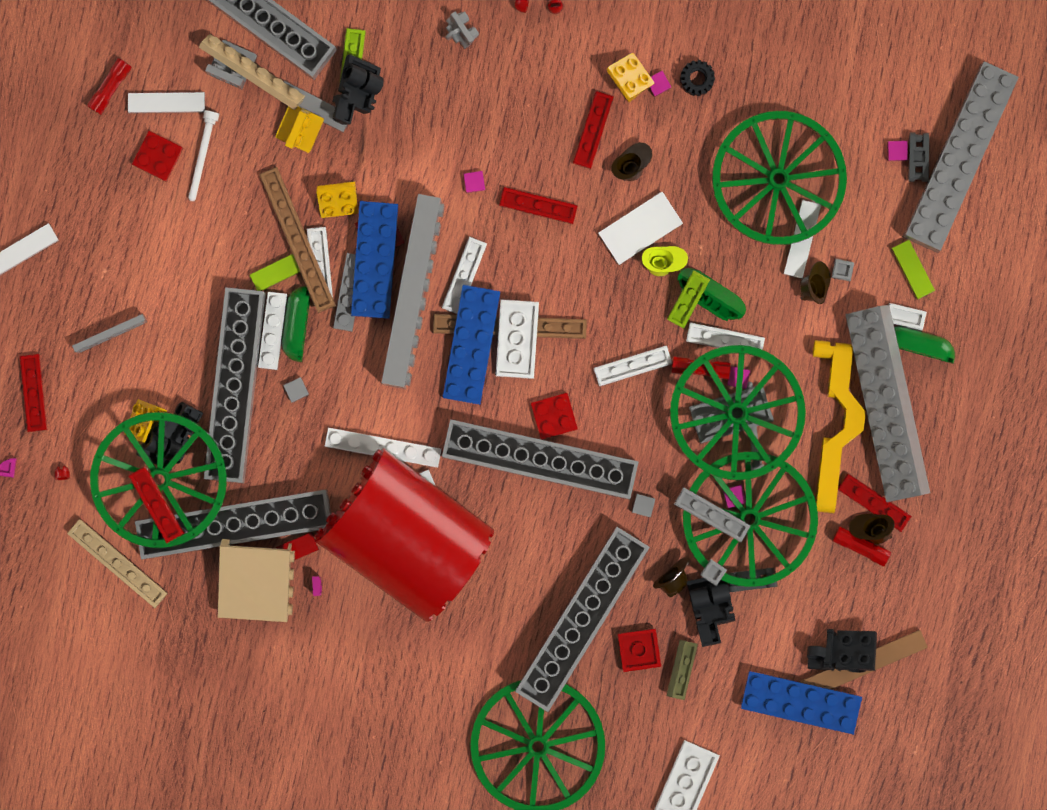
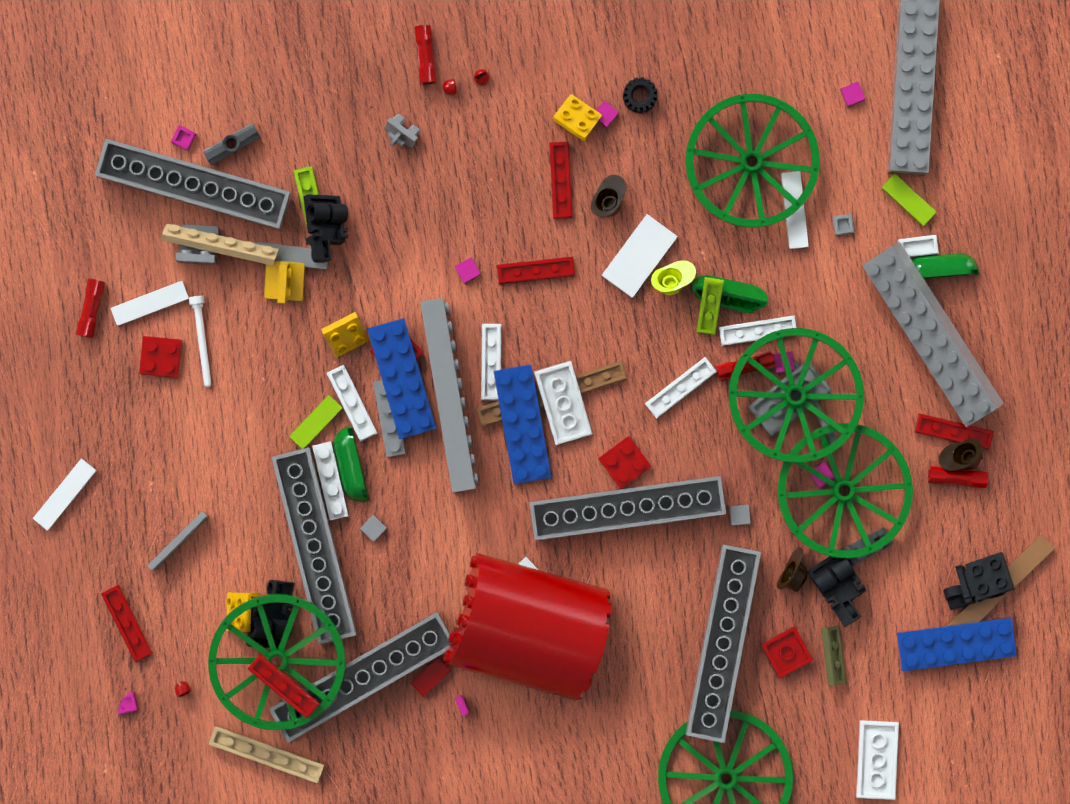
camera: 25 degrees left, 0 degrees up
(255, 582) = (403, 724): tan panel -> none
(297, 240) = (322, 386): medium nougat tile -> none
(370, 444) = (463, 553): white plate -> none
(712, 514) = (808, 500): light grey tile -> none
(713, 572) = (829, 553): light grey tile -> none
(816, 284) = (823, 248): dark brown piece -> none
(853, 422) = (906, 363): yellow beam -> none
(918, 157) = (874, 92): dark grey plate -> none

